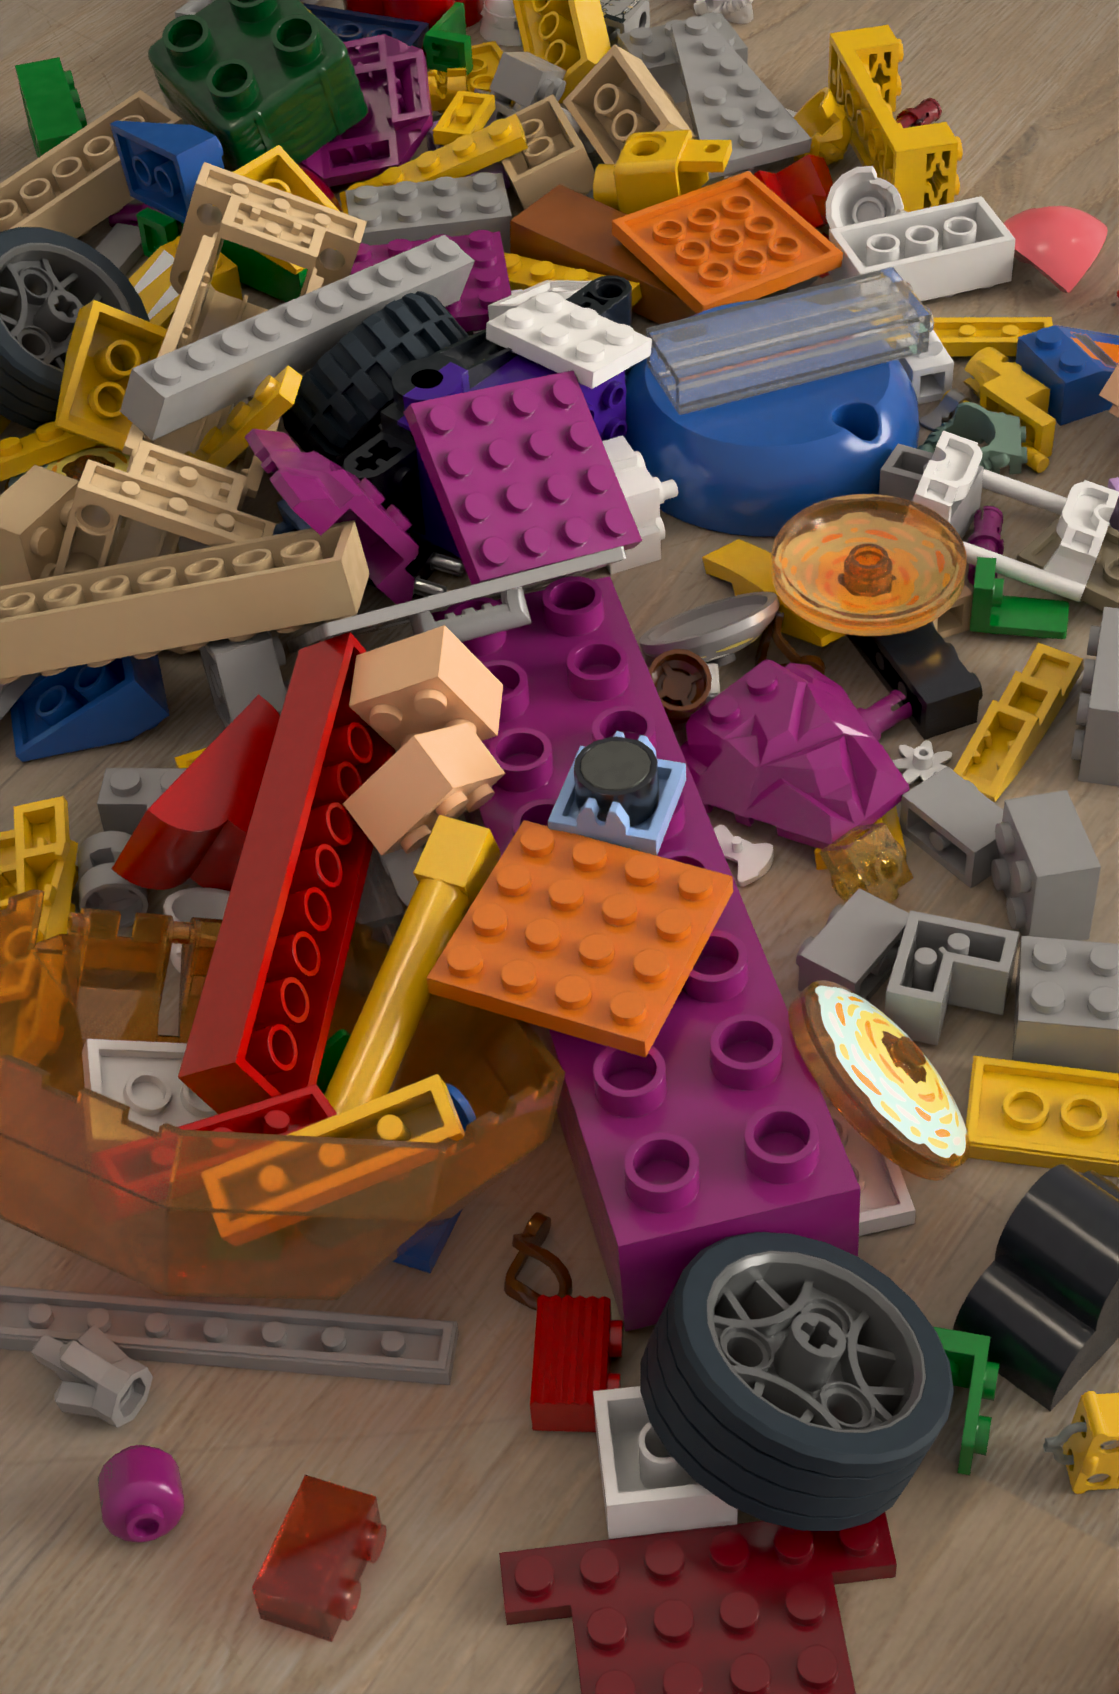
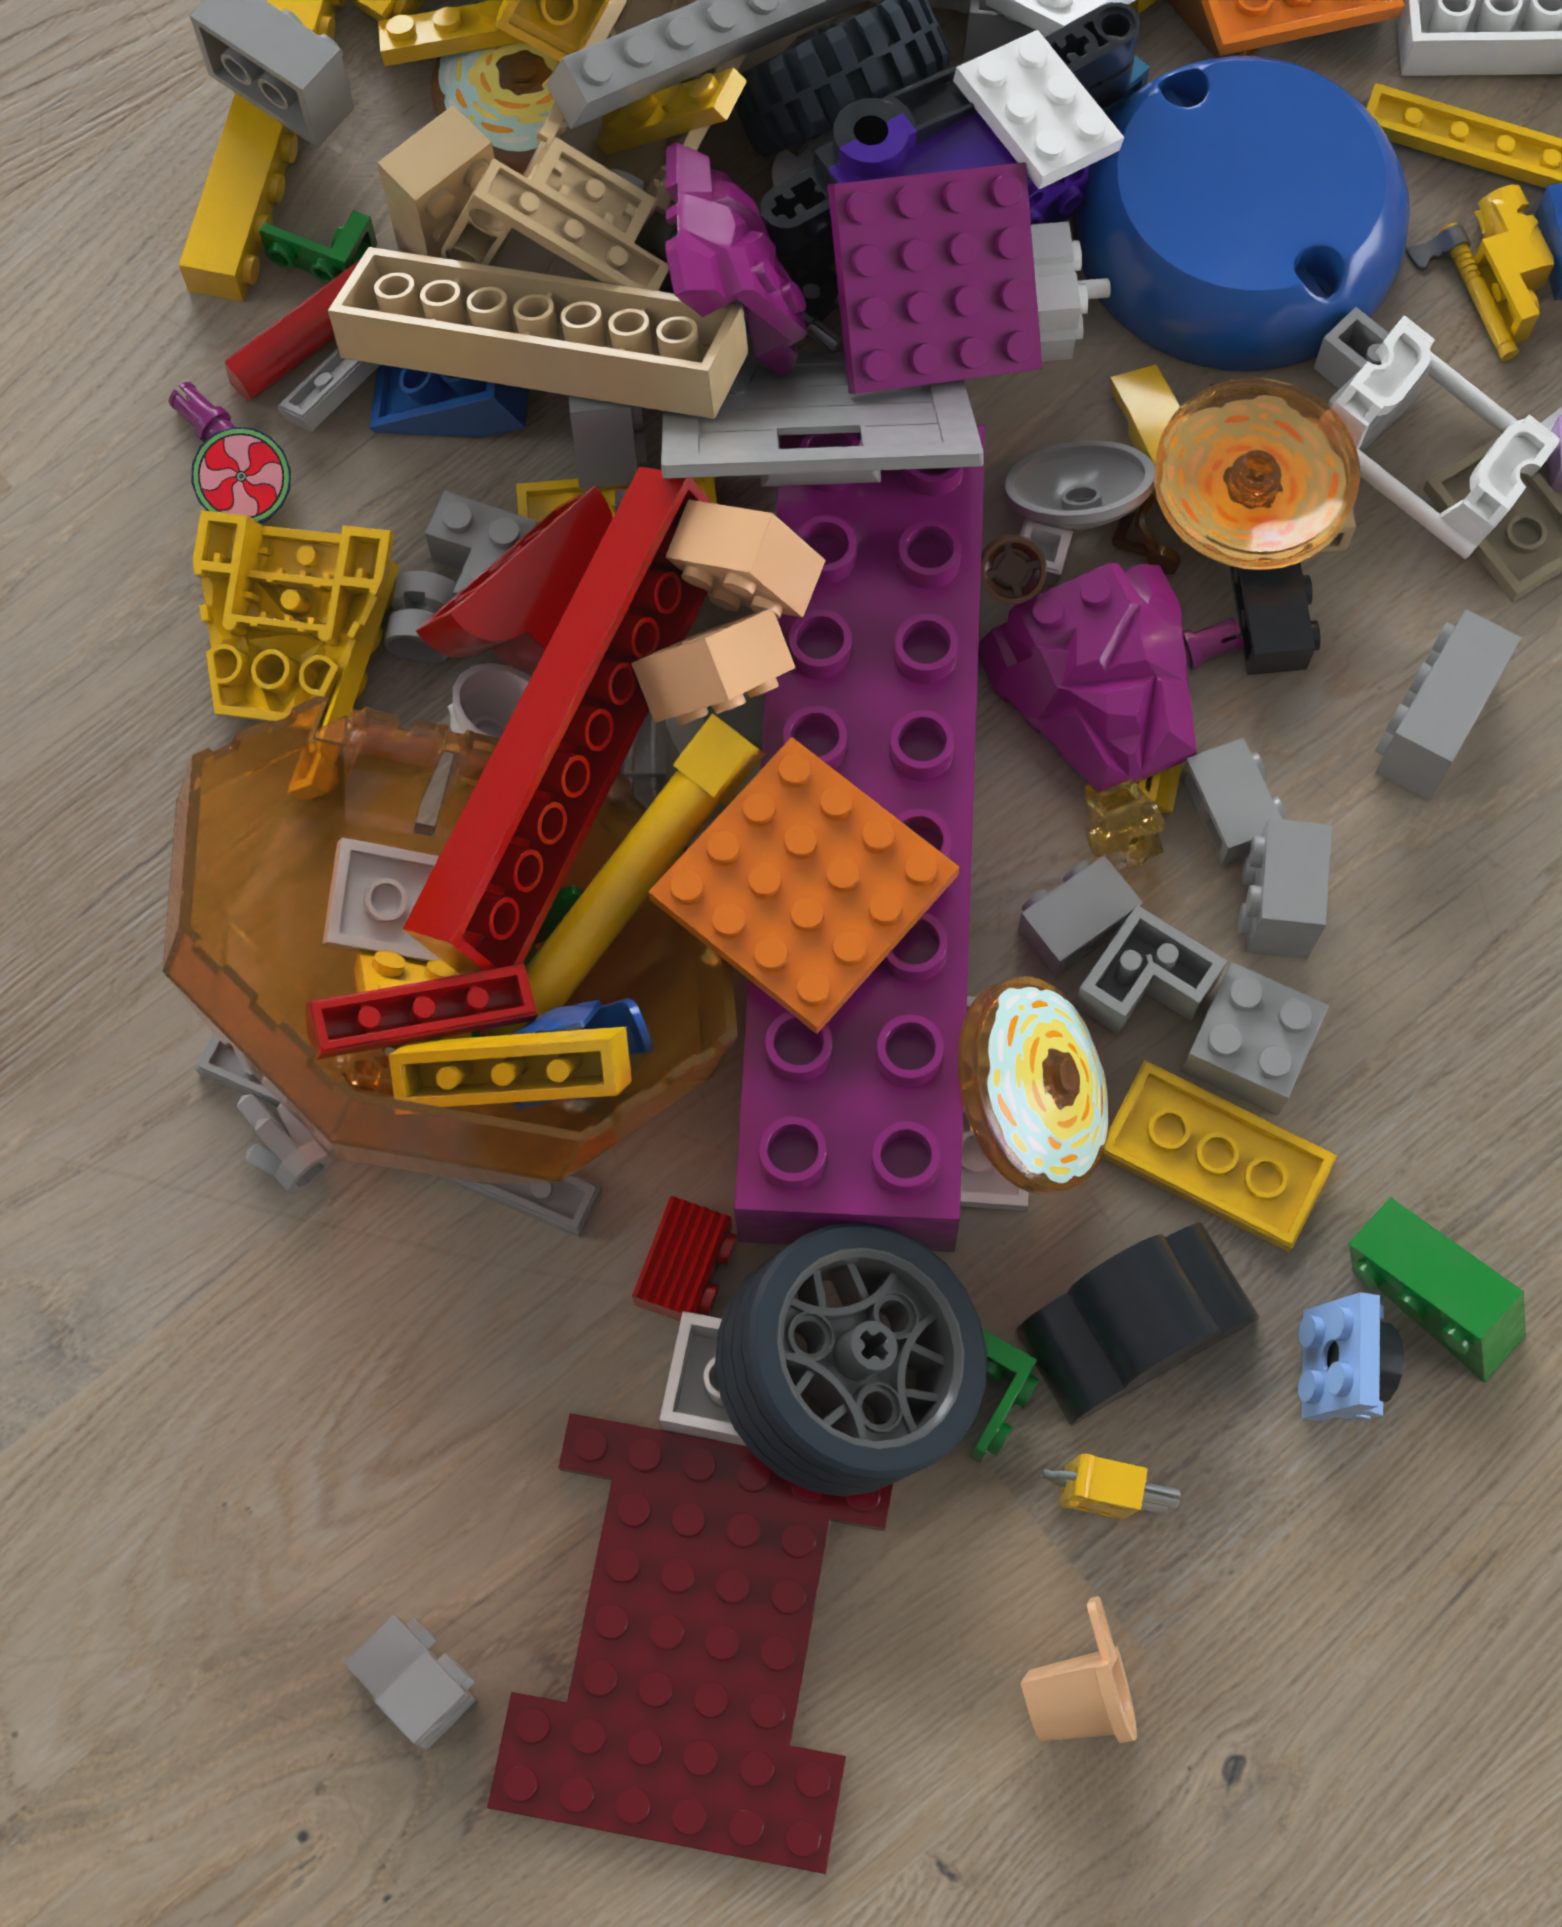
camera: 15 degrees right, 25 degrees up
(140, 1490) = (295, 1268): magenta head -> none
(319, 1558) = (425, 1372): clear red brick -> none
(530, 1244) = (689, 1123): reddish brown piece -> none
(619, 794) = (887, 739): piece -> none
(752, 859) = (1027, 770): white piece -> none
(788, 340) = (1285, 146): clear brick -> none
(921, 761) = (1231, 714): white plant -> none
(930, 371) = (1437, 180): white brick -> none
(986, 534) = (1405, 447): magenta pin -> none
(998, 430) = (1479, 307): sand green piece -> none
(1012, 614) = (1397, 550): green bracket -> none
(1019, 720) = (1341, 690): yellow slope -> none

